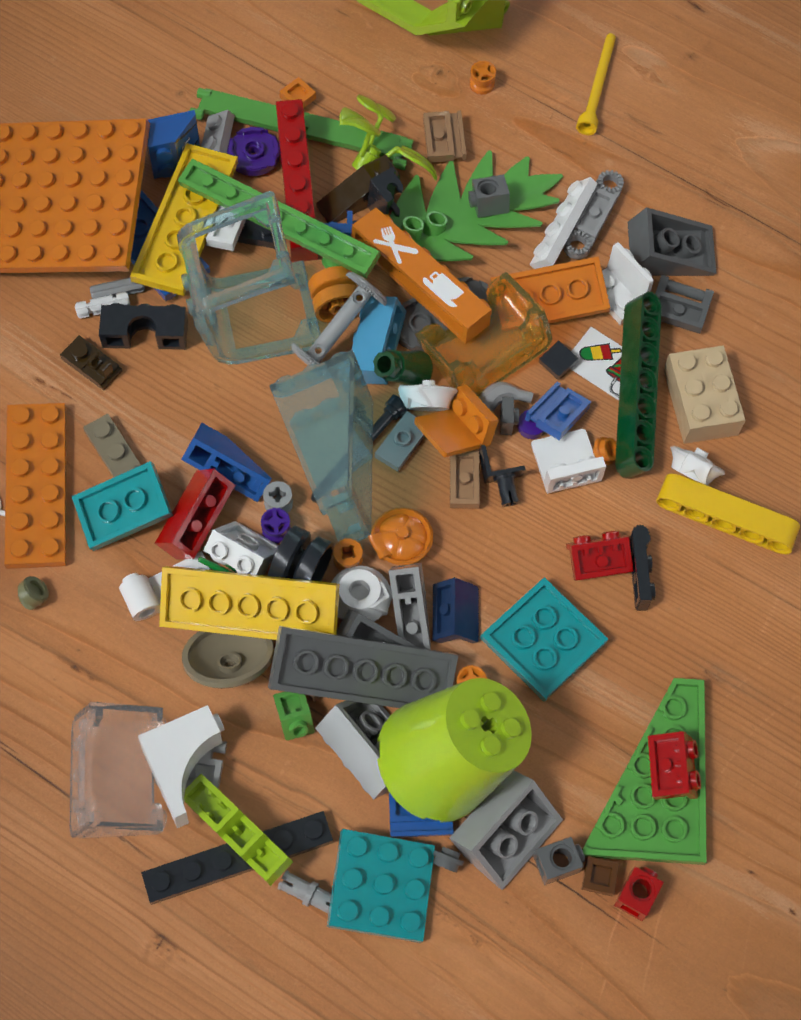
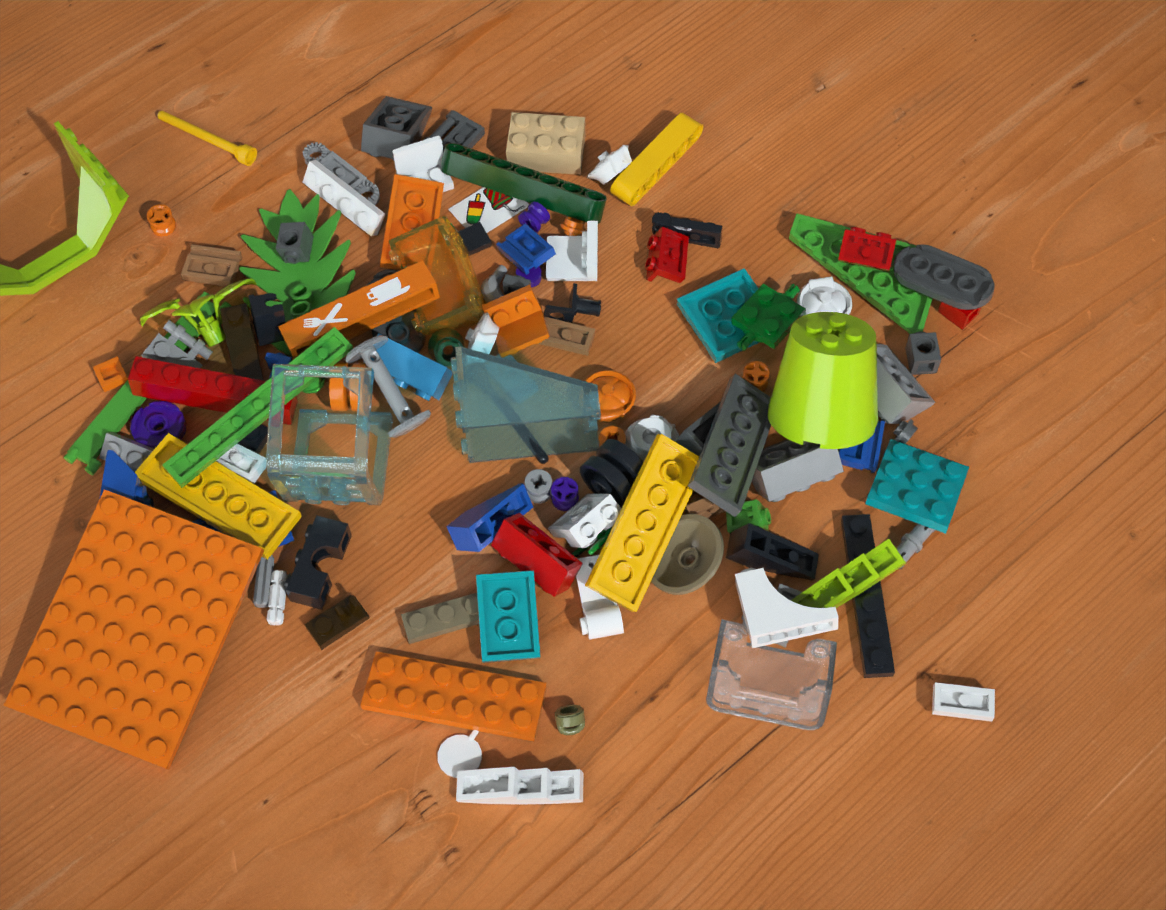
camera: 70 degrees left, 5 degrees down
(131, 983) = (963, 701): none -> white plate
(256, 747) = (763, 549): none -> black slope
(324, 139) = (166, 350): none -> light grey plate
(410, 604) = (671, 401): light grey slope -> none
(455, 611) = (686, 375): dark blue panel -> none
(547, 676) = (767, 316): none -> green plate
(591, 735) = (825, 296): none -> white piece
(600, 876) = (943, 326): reddish brown plate -> none
(602, 408) = (534, 216): none -> dark purple wheel
(662, 863) = (944, 277): none -> dark grey tile

